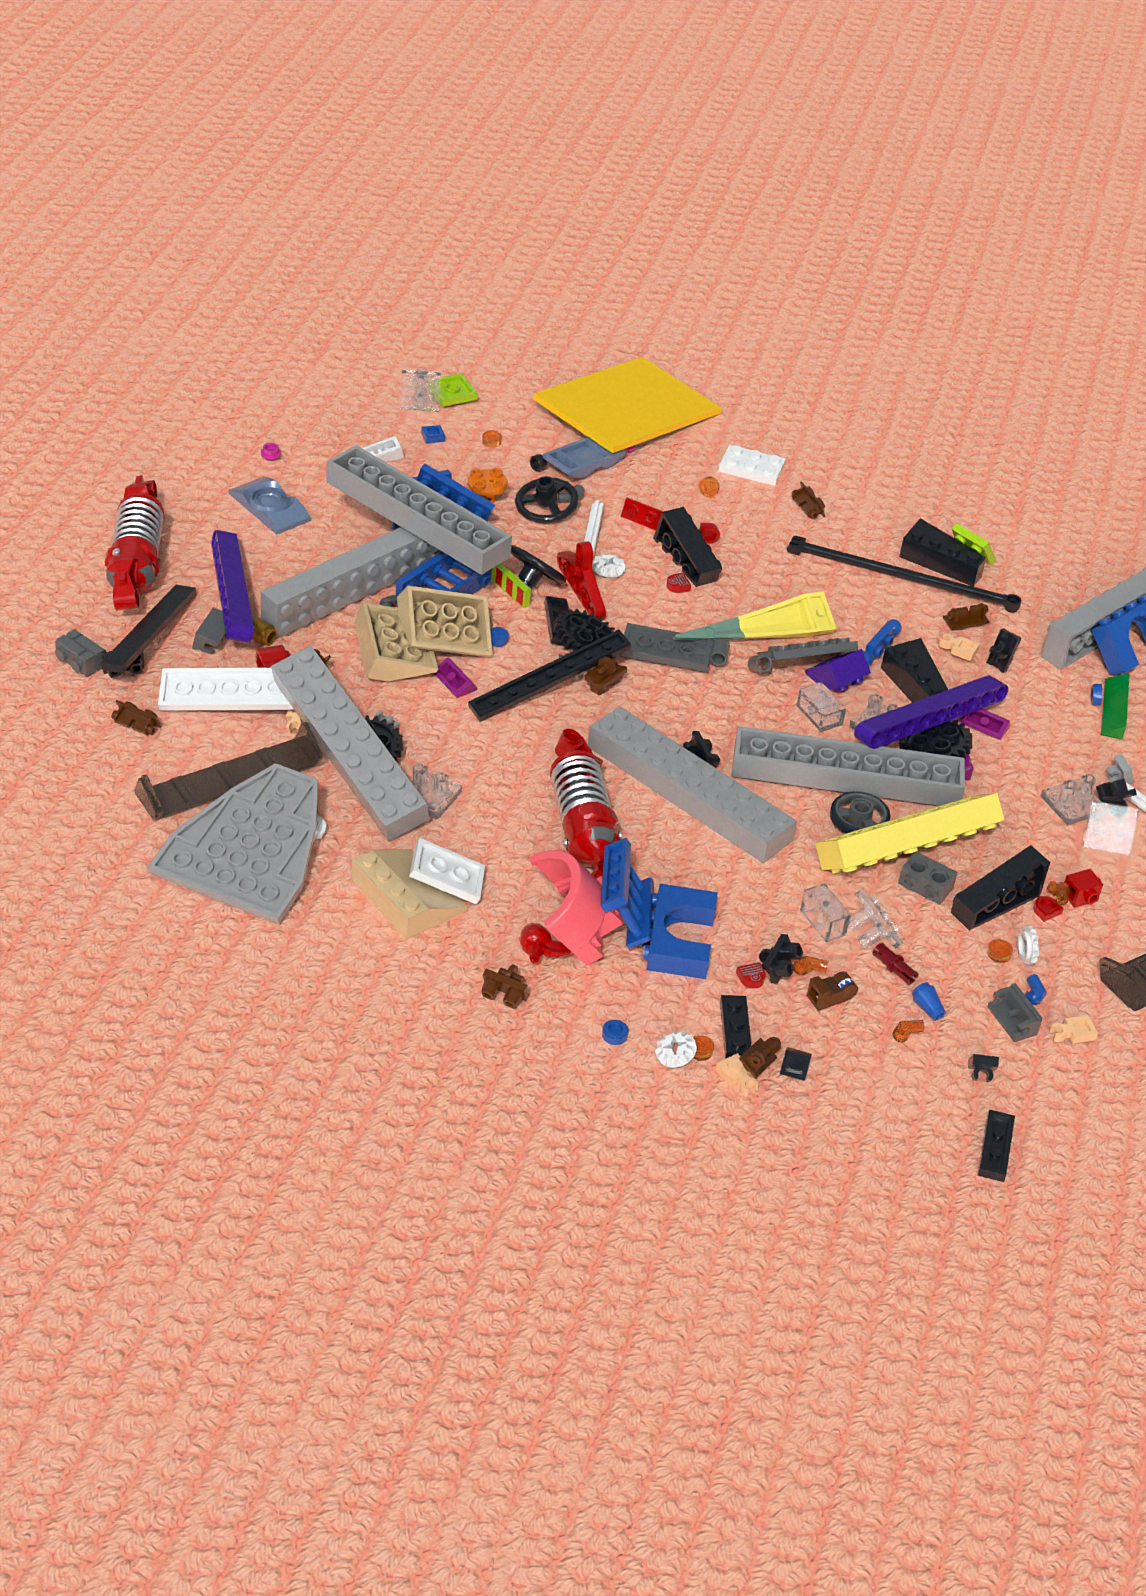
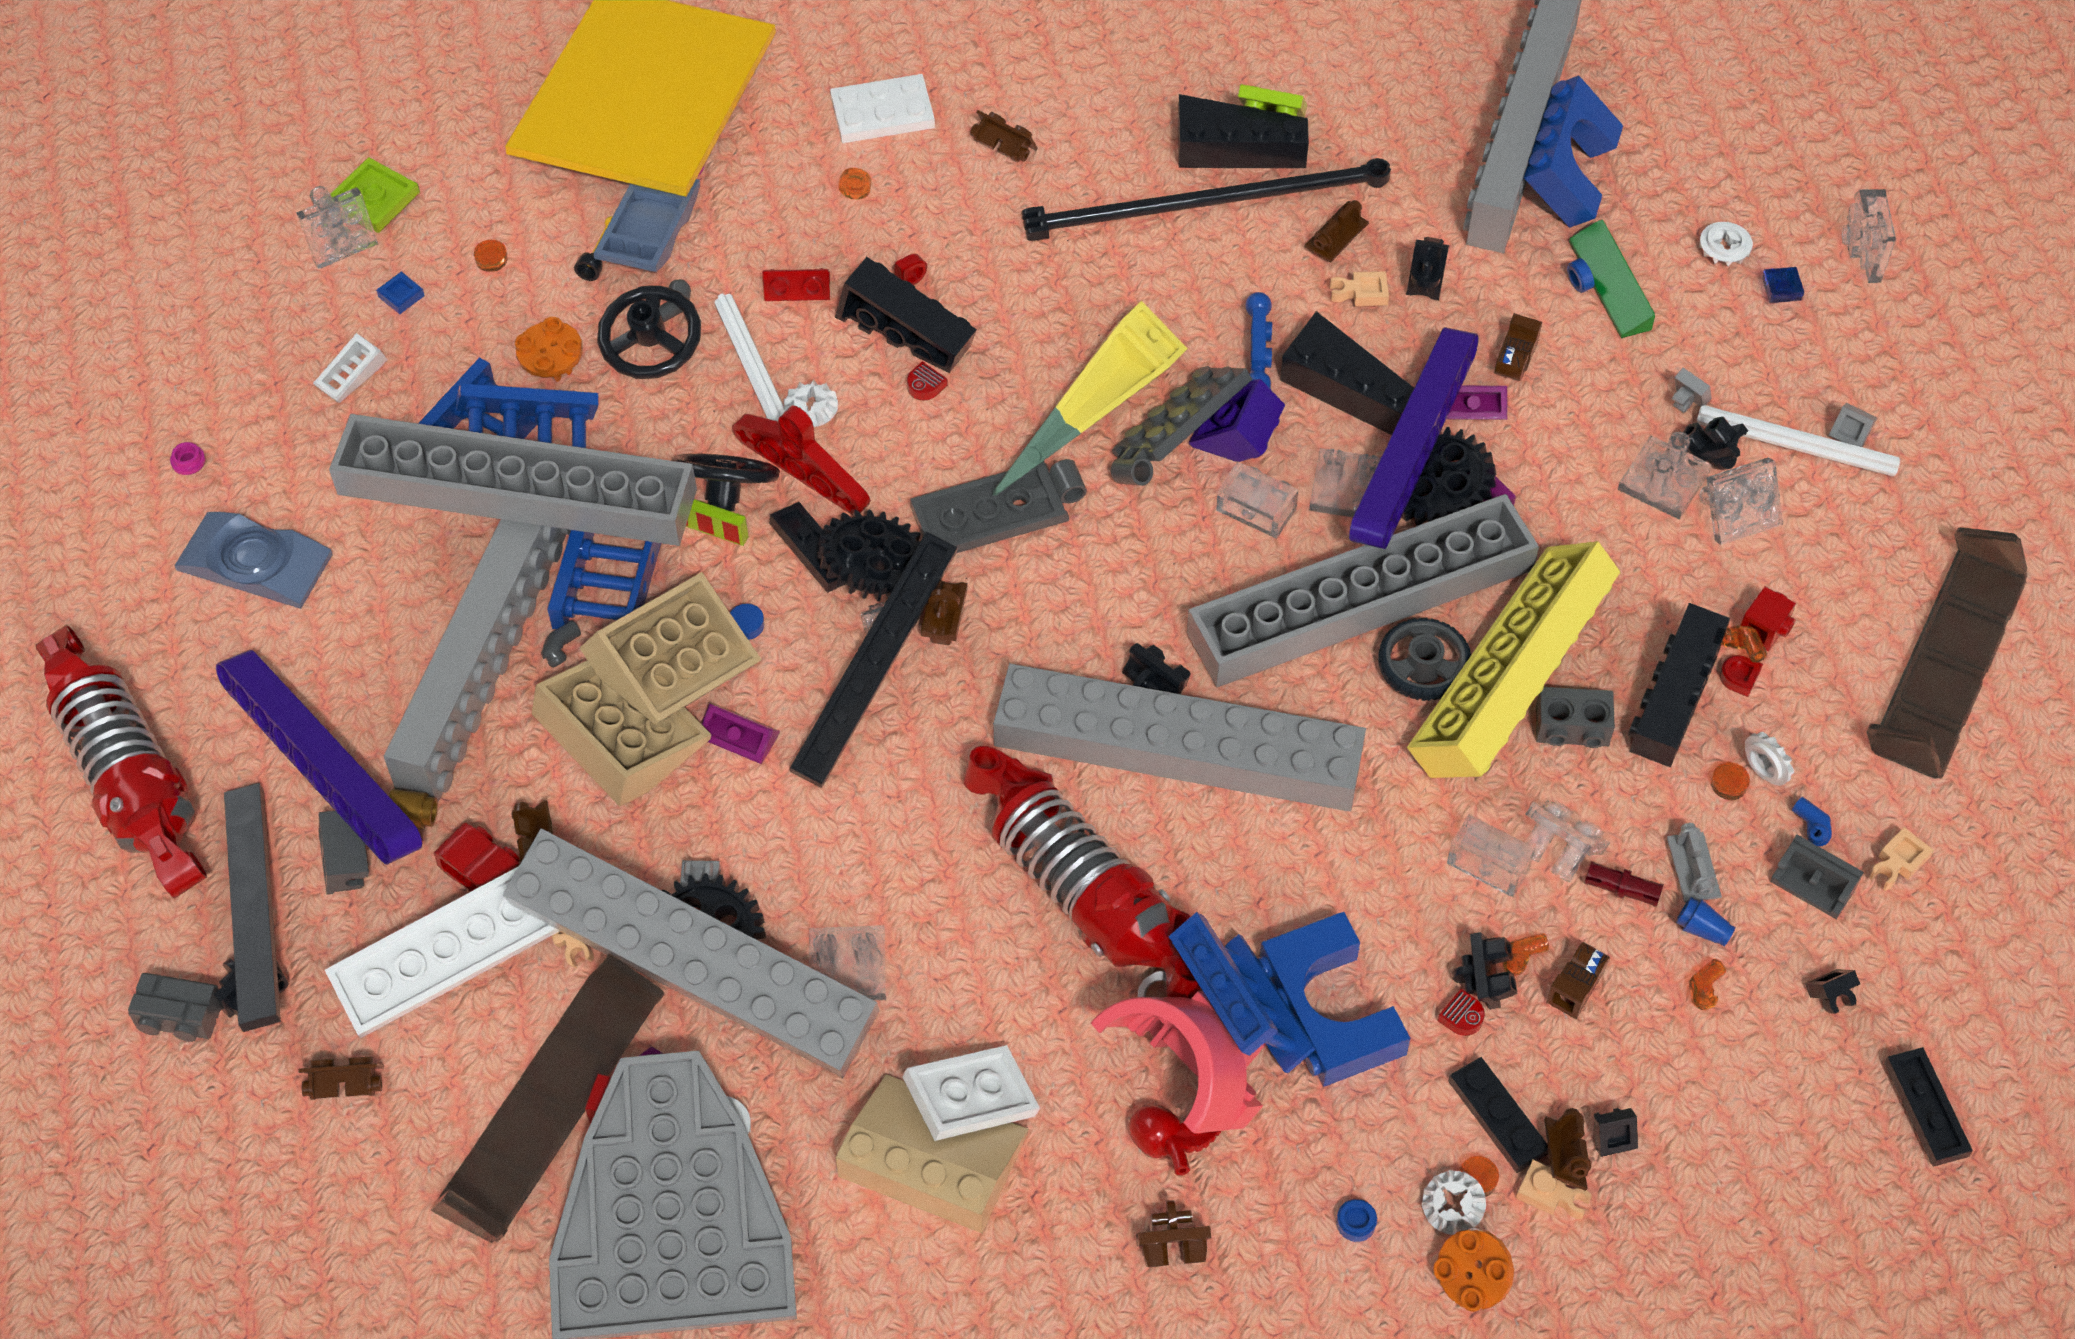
camera: 25 degrees left, 15 degrees up
(661, 1079) = (1488, 1283): none -> orange plate
(946, 973) = (1693, 864): none -> light grey hinge
(1031, 709) = (1518, 347): none -> reddish brown leg

